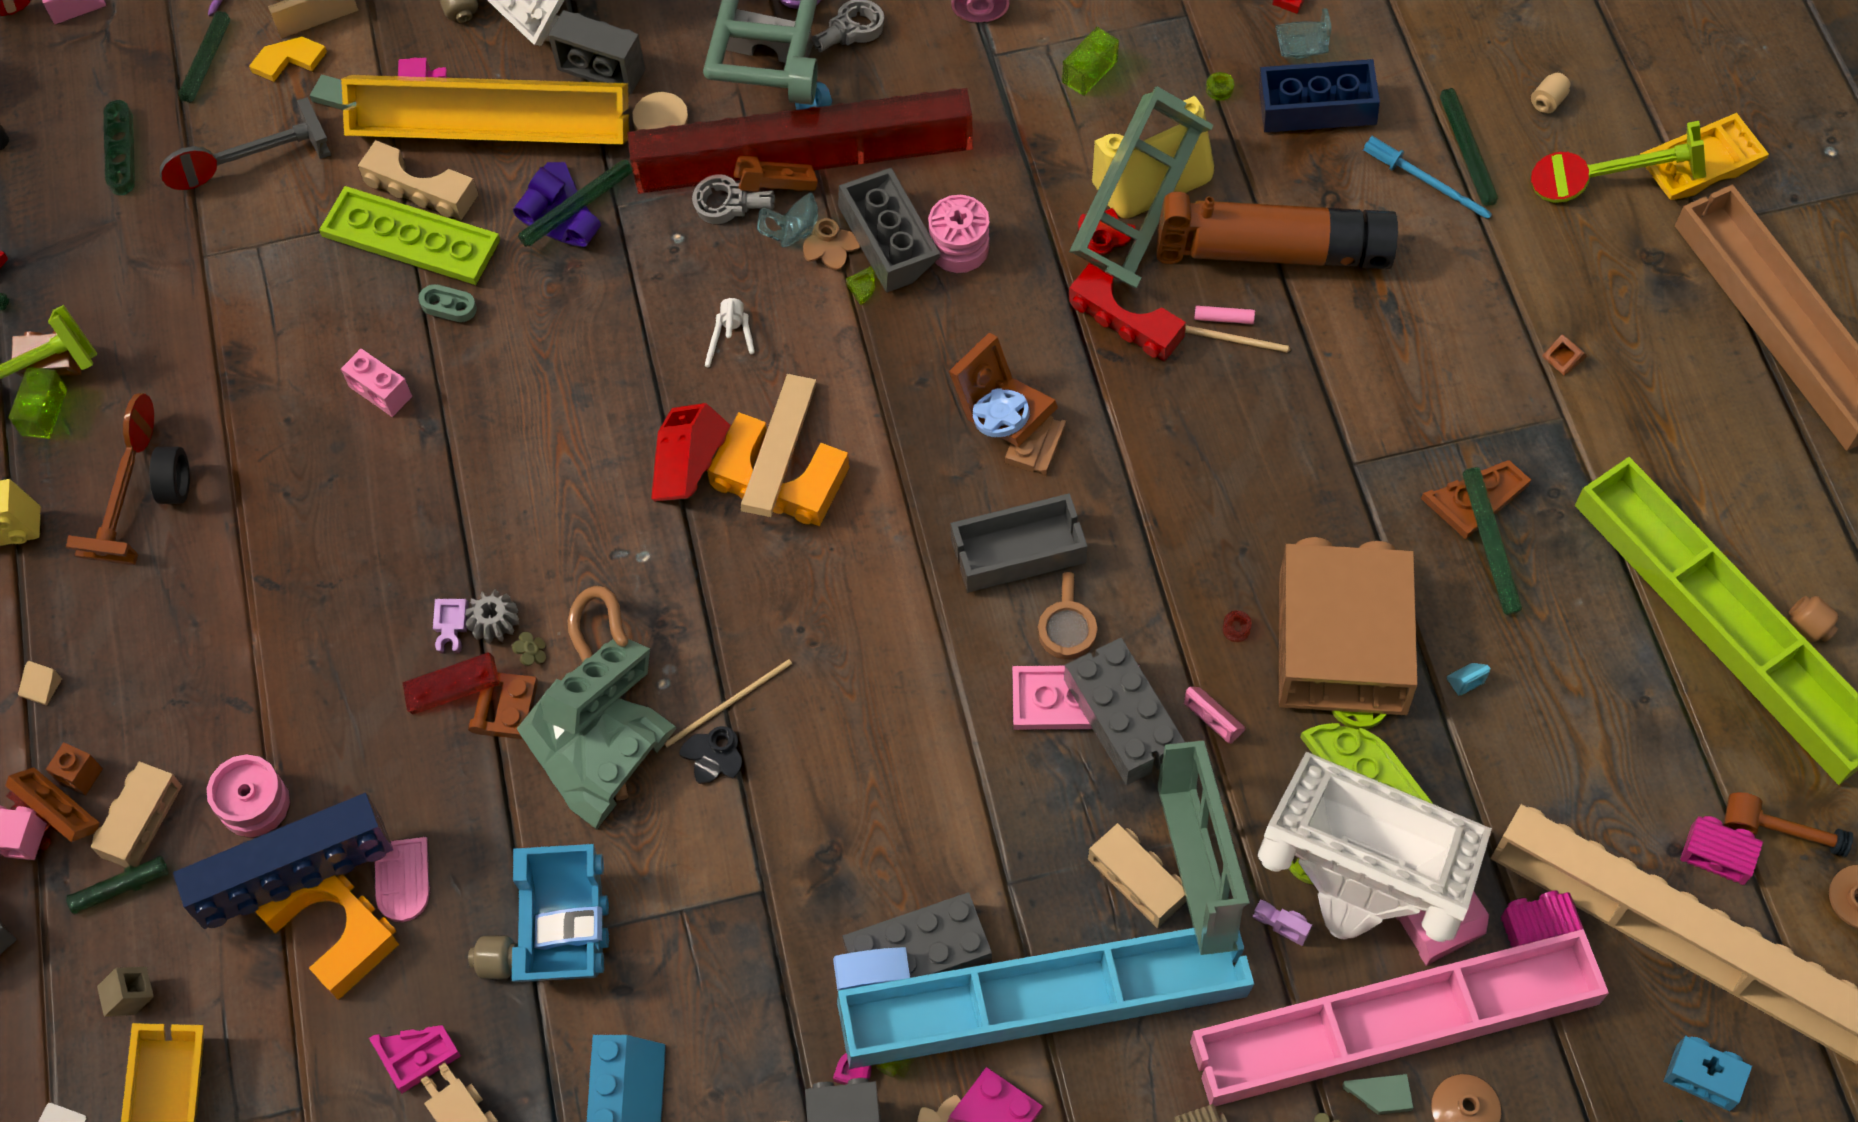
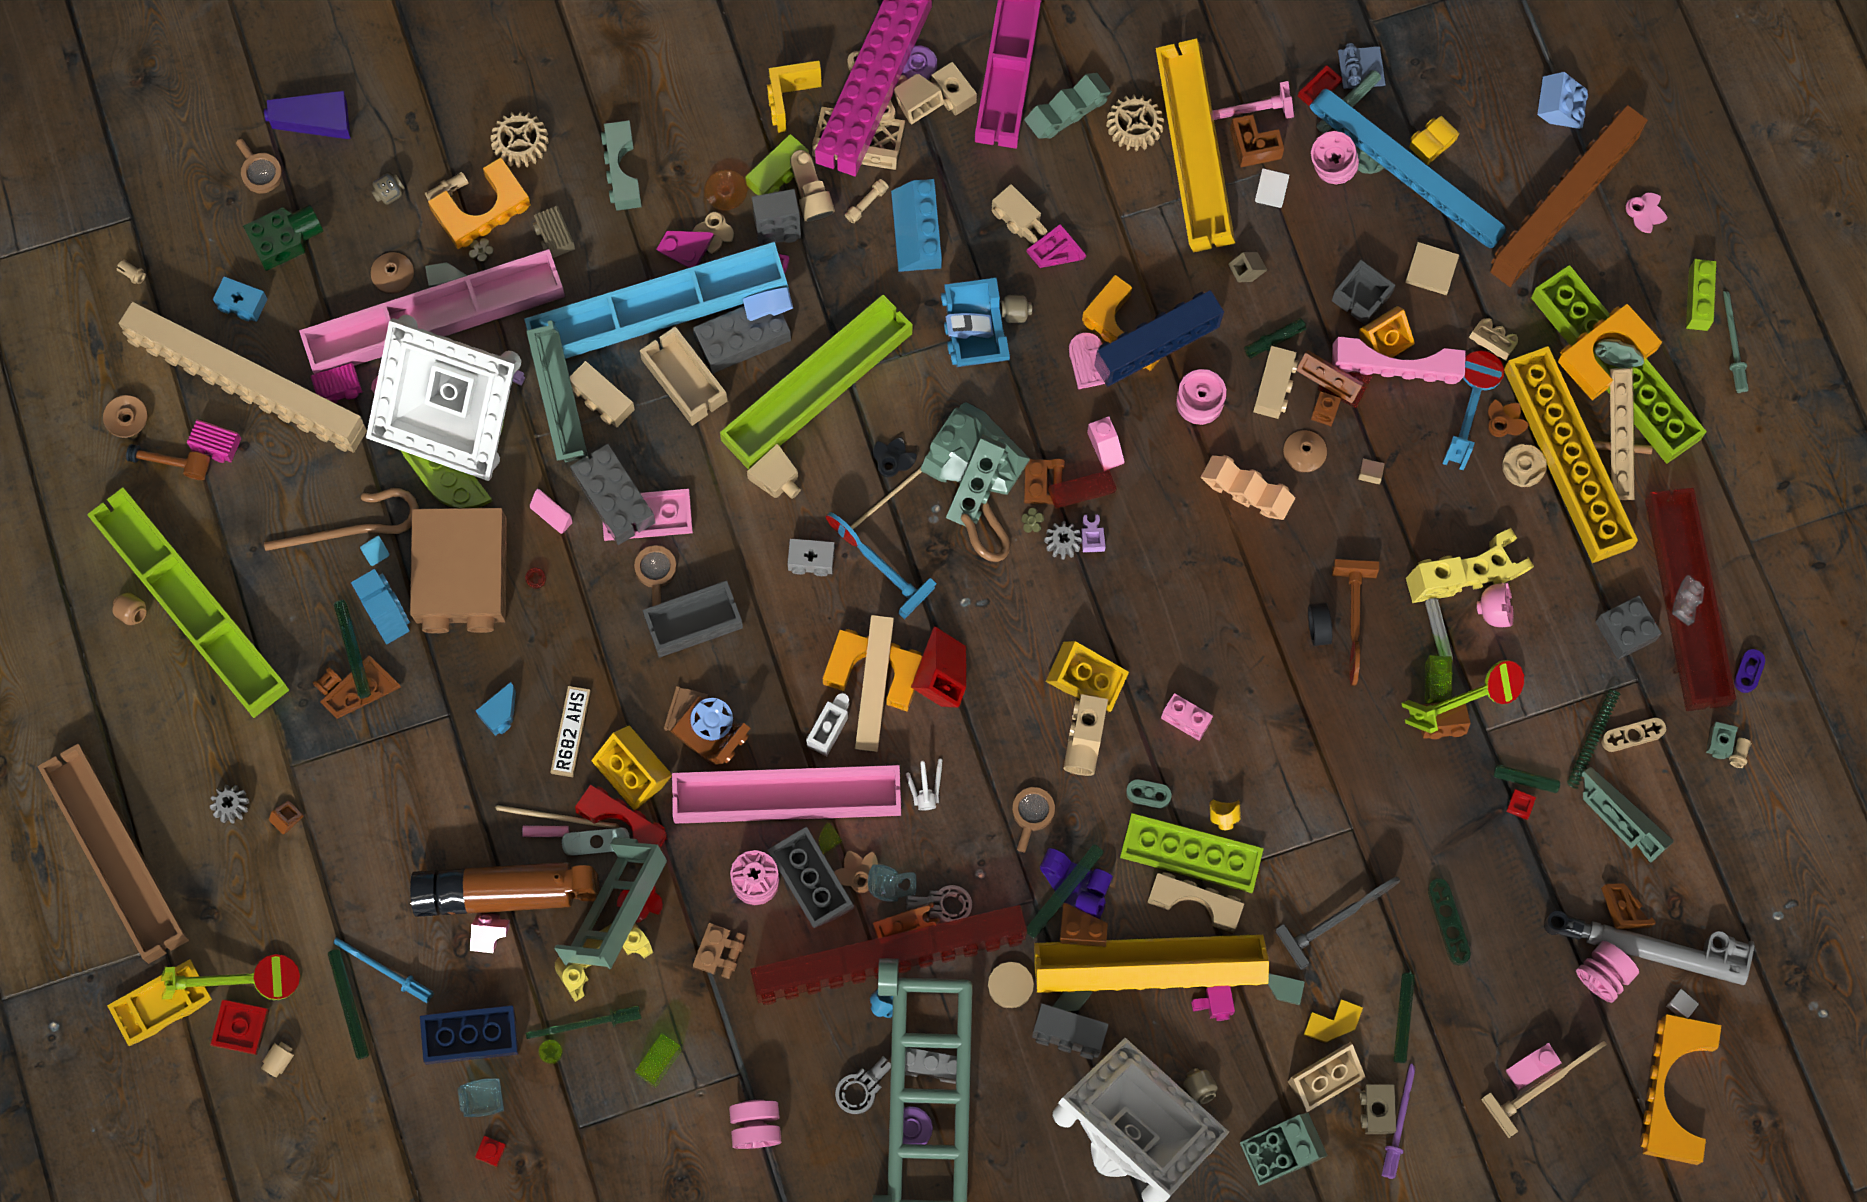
camera: 170 degrees right, 10 degrees up
(18, 458) = (1438, 627): none -> light grey axle
(129, 733) = (1300, 459): none -> medium nougat dish
(216, 666) = (1248, 487): none -> light nougat brick
(355, 269) = (1224, 814): none -> yellow piece
(403, 749) = (1106, 443): none -> bright pink slope
(498, 443) = (1086, 673): none -> yellow slope
(509, 364) = (1085, 739): none -> tan brick
(562, 155) = (1082, 928): none -> dark orange wing
(599, 297) = (1033, 811): none -> piece
(710, 556) = (914, 595): none -> dark azure piece
(808, 863) = (816, 382): none -> lime piece
(831, 623) = (802, 550): none -> light grey brick
(846, 399) = (829, 725): none -> white brick
(887, 738) = (775, 474): none -> tan torso
(906, 323) = (786, 794): none -> bright pink piece
(1011, 886) = (683, 376): none -> tan piece
(1018, 177) = (712, 948): none -> medium nougat plate
(1108, 375) = (631, 767): none -> yellow slope
(1125, 112) = (615, 1017): none -> clear green piece
(1179, 298) = (579, 842): none -> light aqua piece
(1190, 429) = (570, 731): none -> tile
(1288, 453) = (499, 710): none -> dark azure slope
(1296, 192) = (486, 930): none -> brick
(1454, 571) = (381, 605): none -> dark azure piece
(1495, 711) = (357, 529): none -> medium nougat piece
(1523, 507) = (334, 679): none -> dark orange bush
(1600, 128) = (239, 1027): none -> red plate
(1641, 367) = (222, 810): none -> light grey gear

